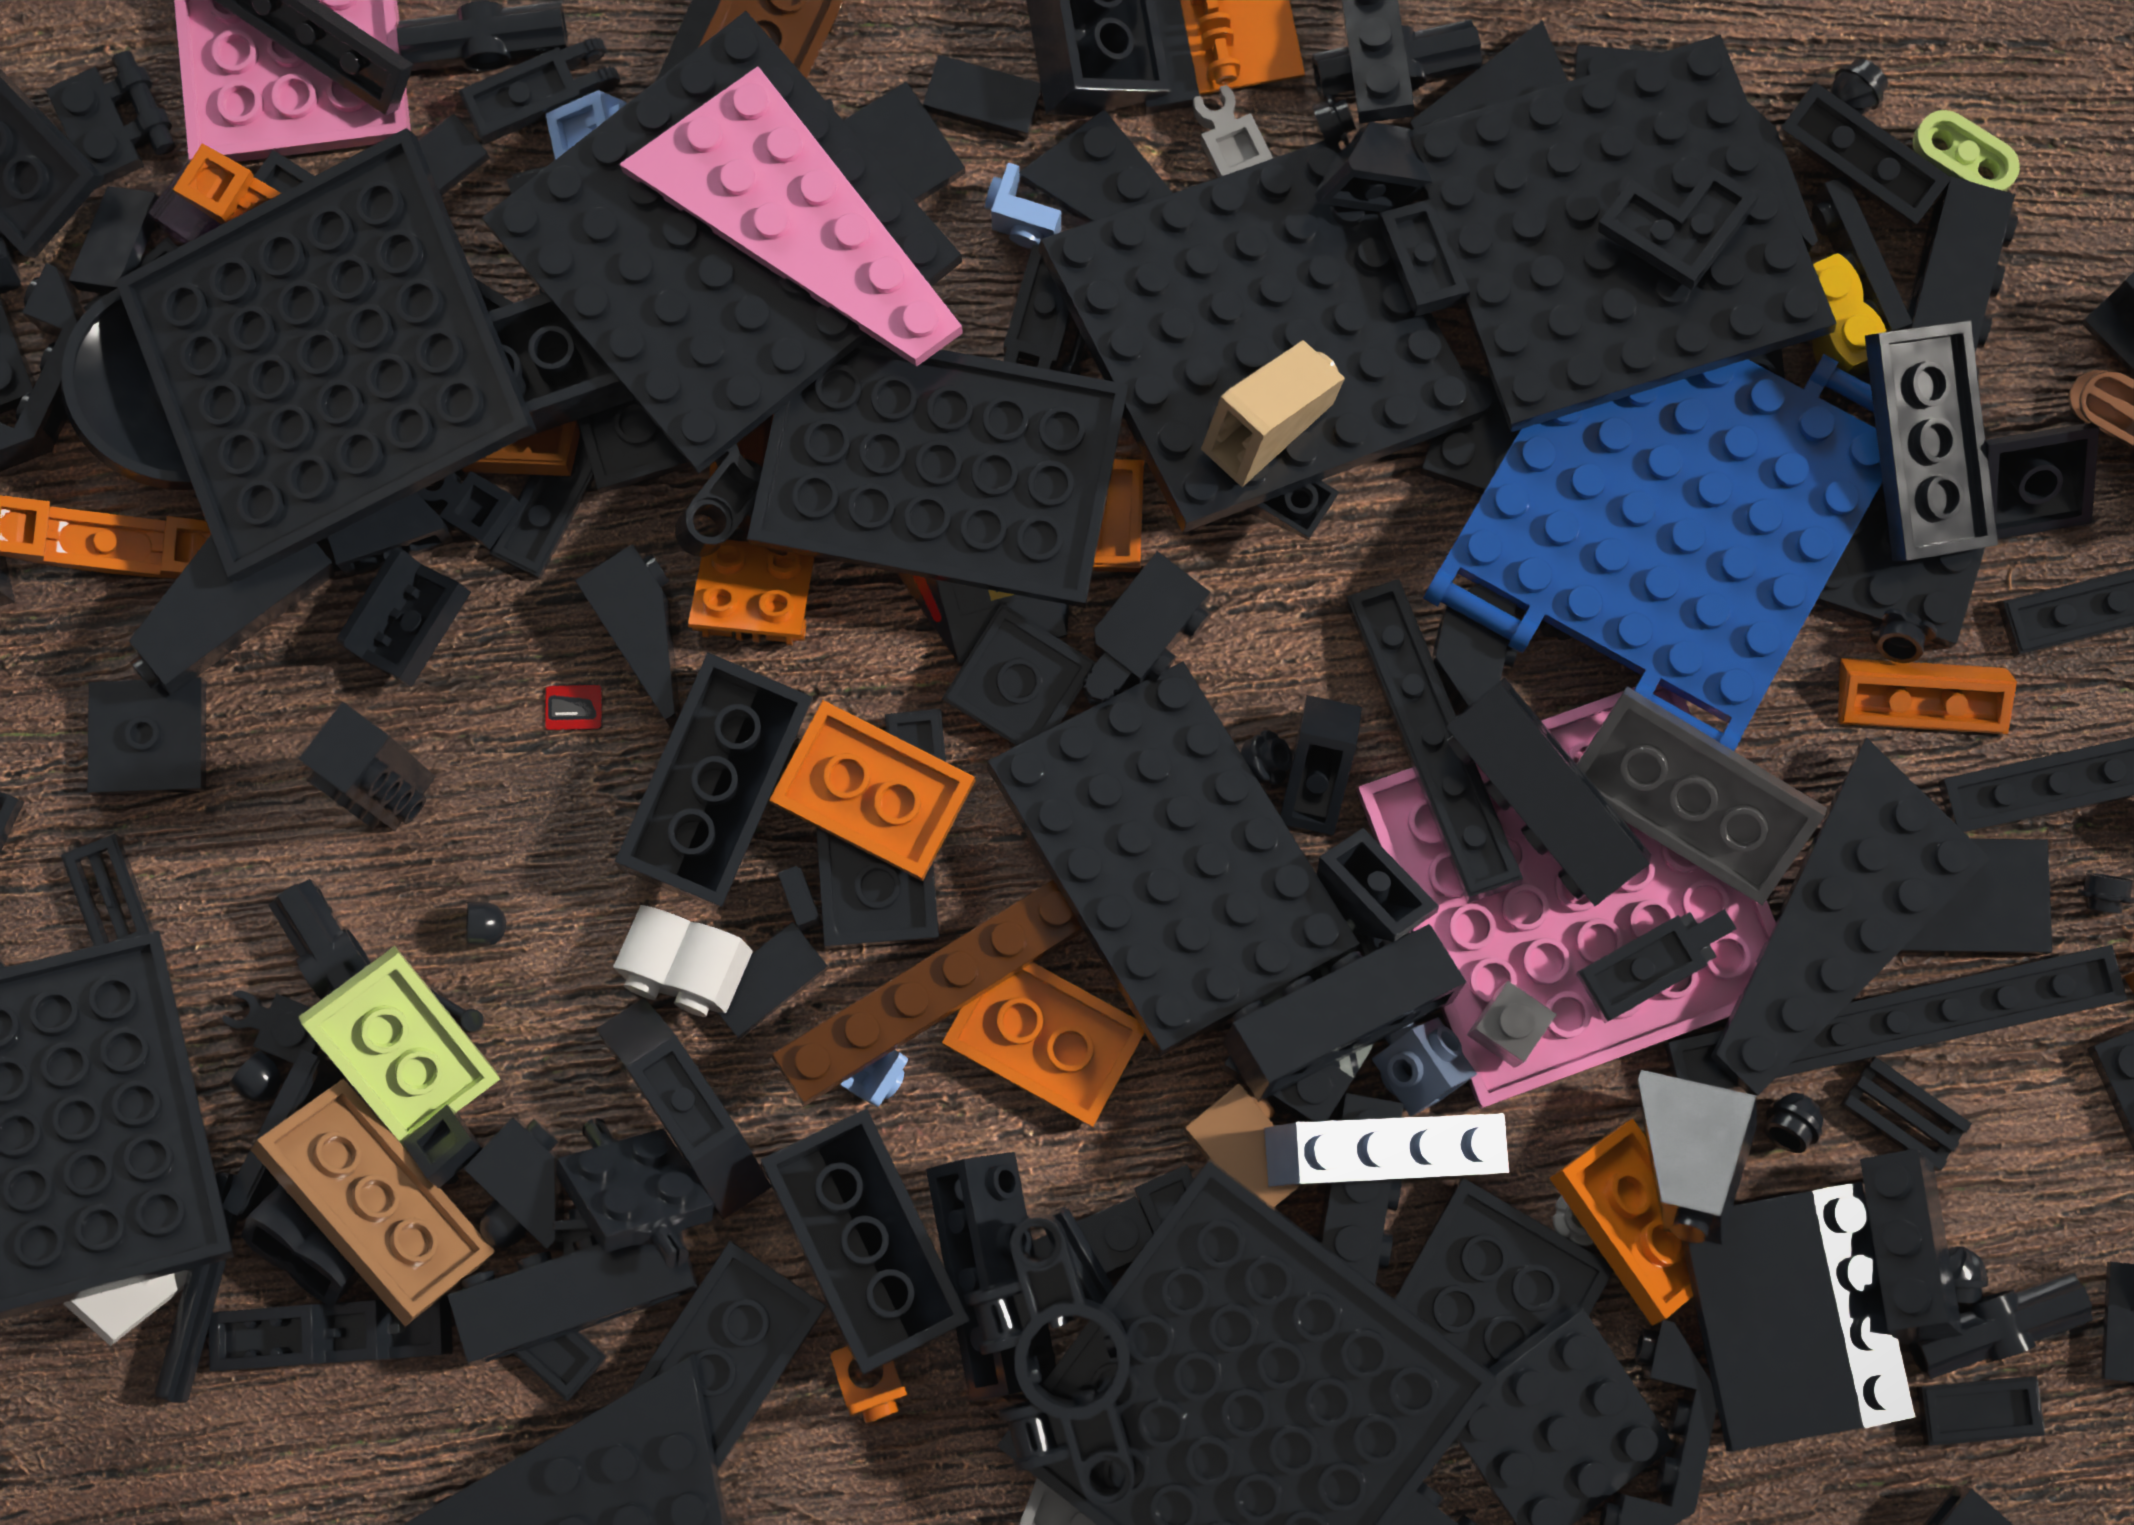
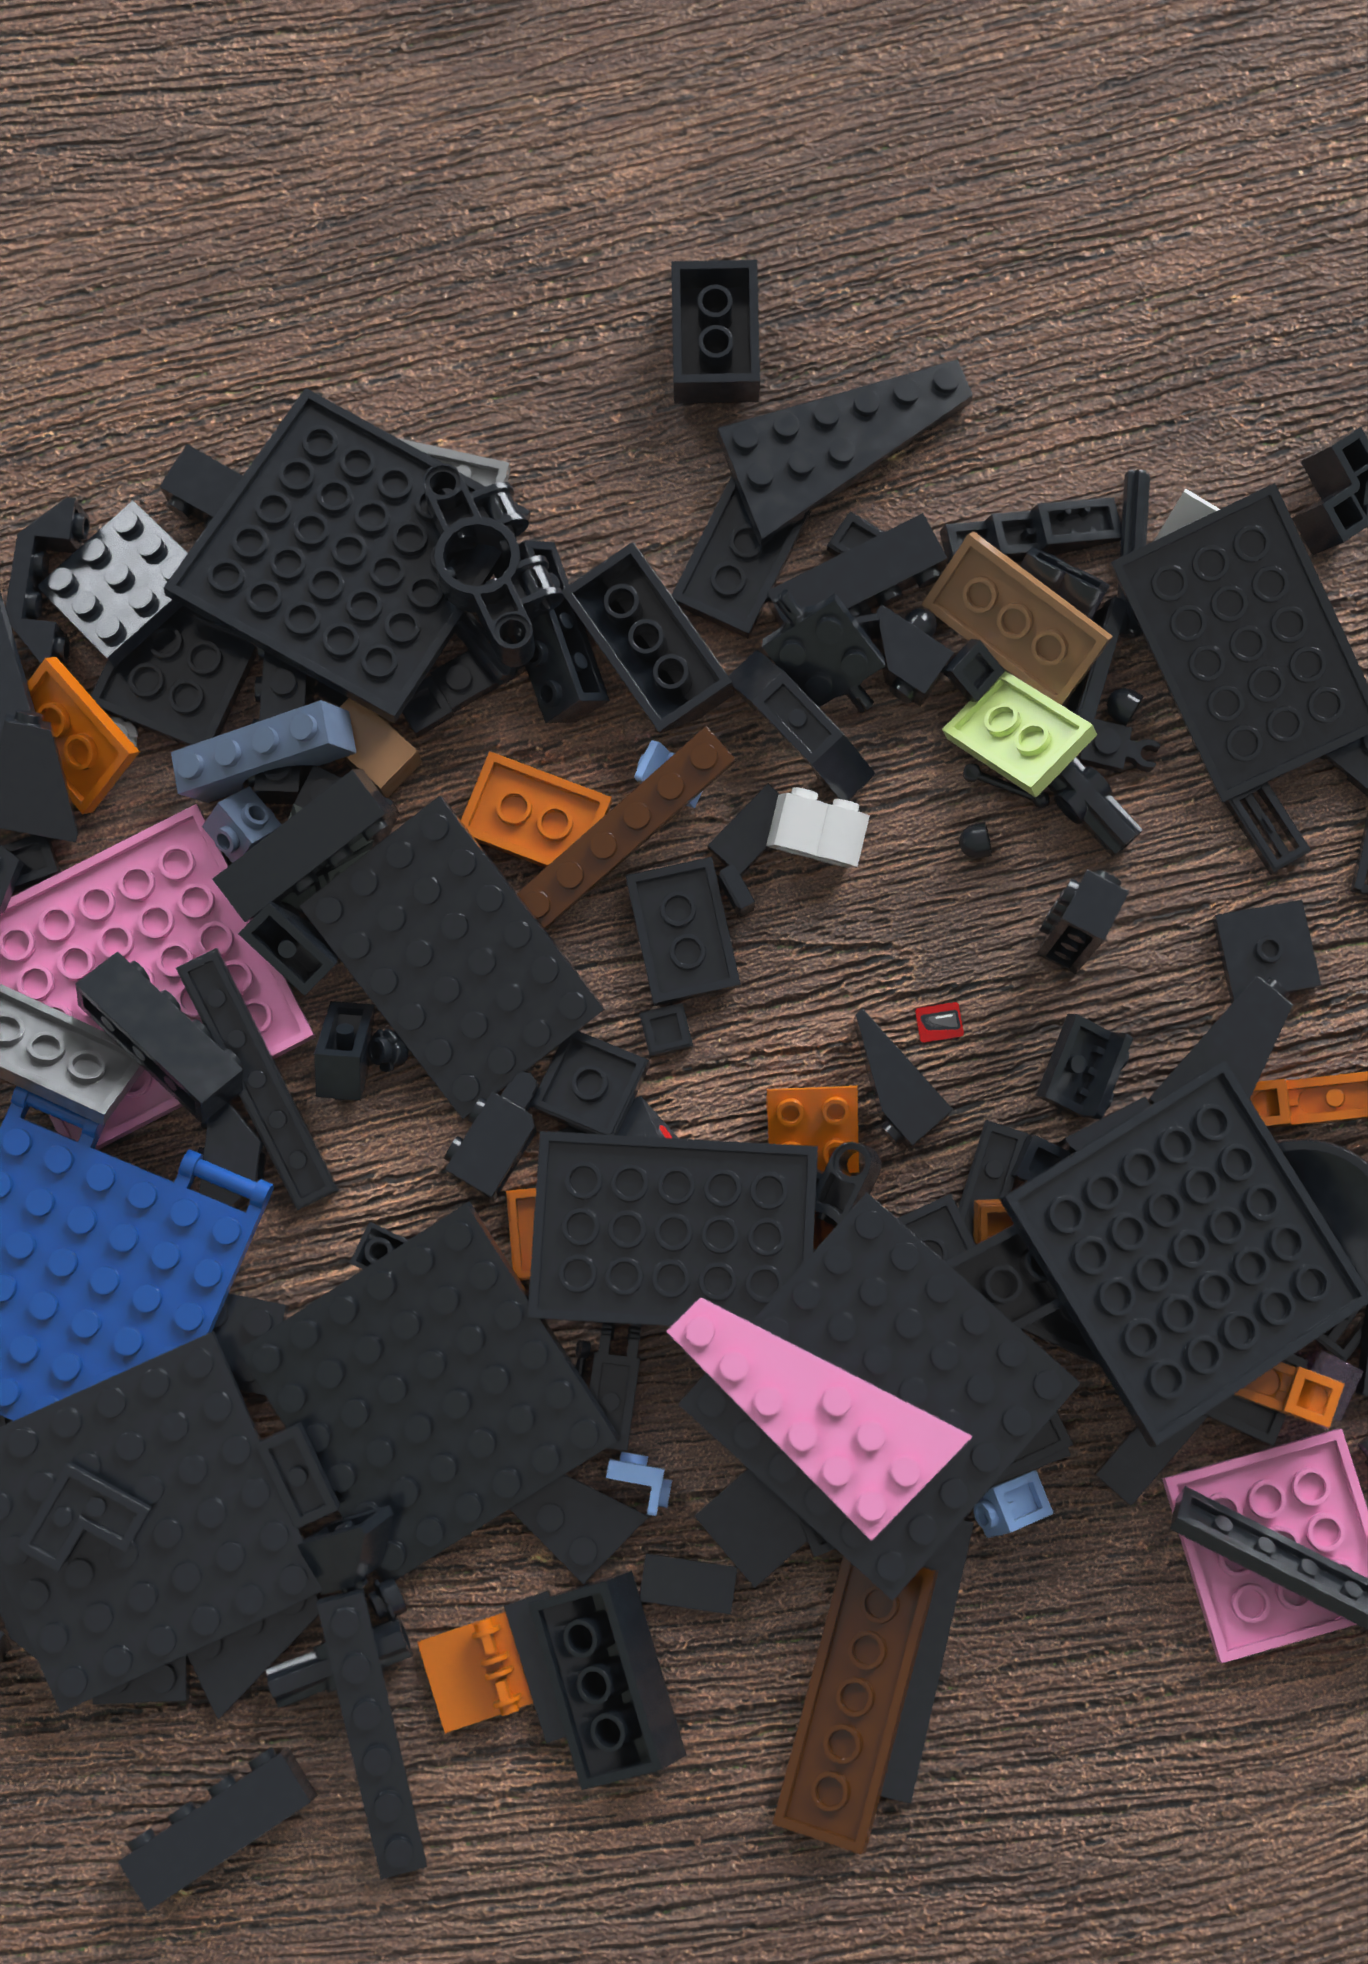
camera: 175 degrees right, 0 degrees up
(483, 35) = (1119, 1576): black piece -> none
(535, 88) = (1067, 1533): black hinge -> none
(713, 781) = (815, 966): black slope -> none
(871, 1402) = (623, 533): orange bracket -> none
(872, 790) = (691, 974): orange plate -> none
(1231, 141) = (469, 1566): light grey plate -> none
(1270, 410) = (403, 1302): tan slope -> none
(1511, 1024) = (176, 858): flat silver brick -> none
(1652, 963) = (70, 924): black hinge -> none

